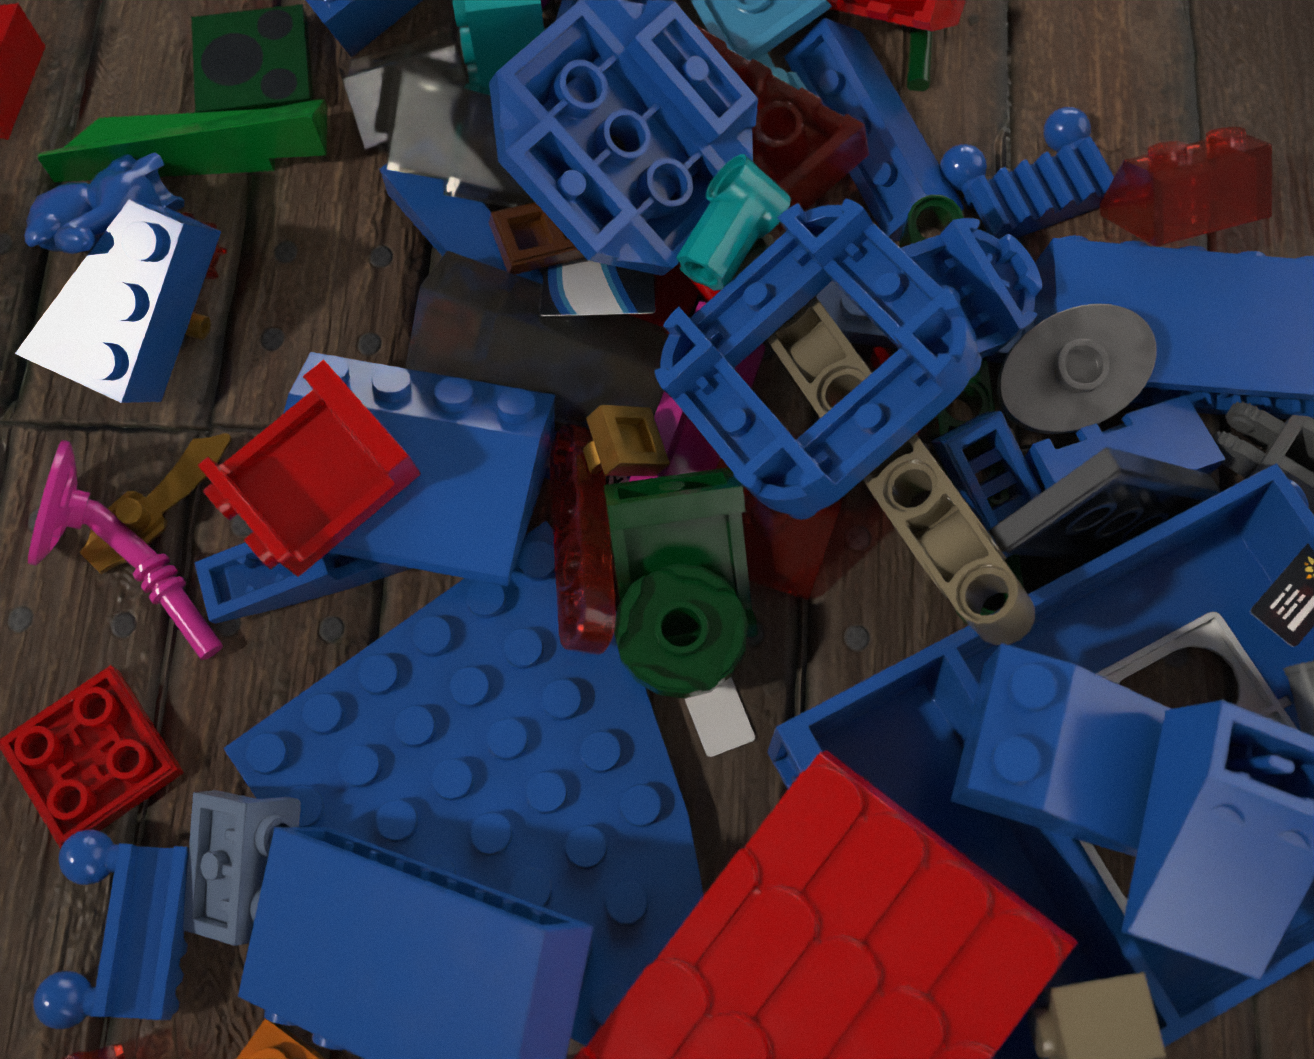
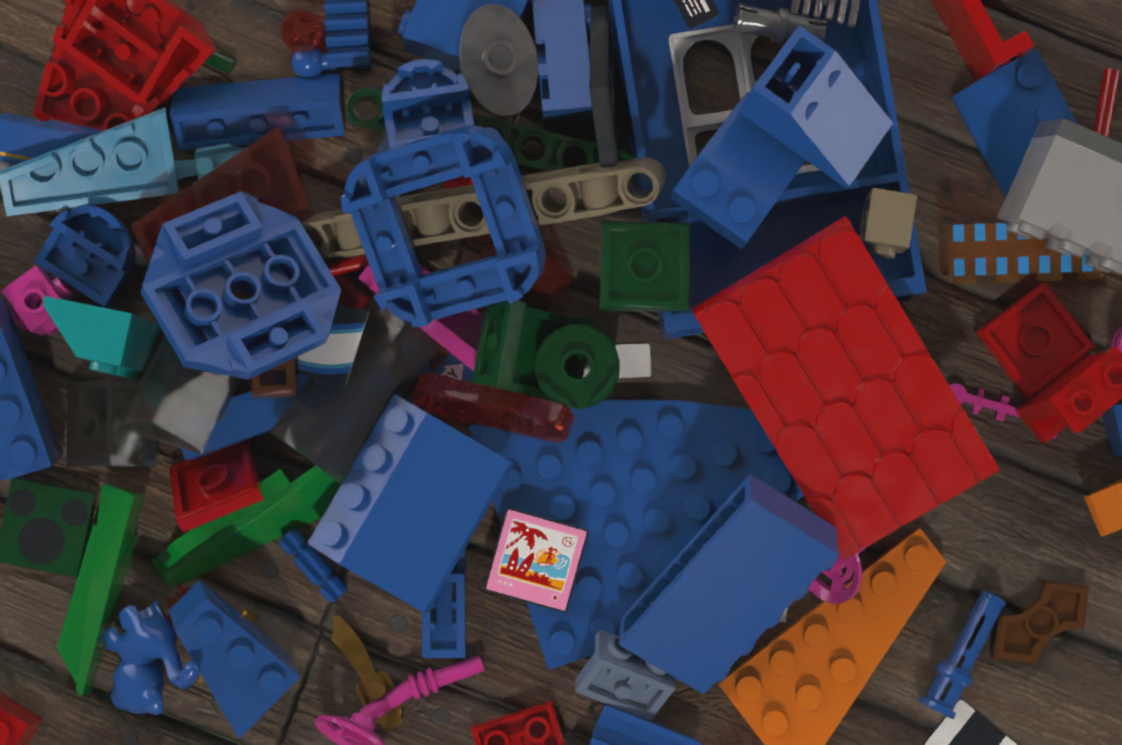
camera: 70 degrees left, 15 degrees up
(277, 391) = (313, 565): none -> blue axle
(310, 475) = (405, 564): red panel -> none
(325, 283) = (285, 507): none -> green wedge
(358, 220) = (215, 485): none -> red tile
(377, 671) = (536, 560): none -> tile
(624, 442) = (446, 360): pearl gold tile -> none
(740, 211) = (317, 230): teal piece -> none
(865, 659) = (644, 266): none -> dark green tile
(996, 131) = (299, 26): none -> clear red wheel
(1002, 449) = (518, 141): blue slope -> none

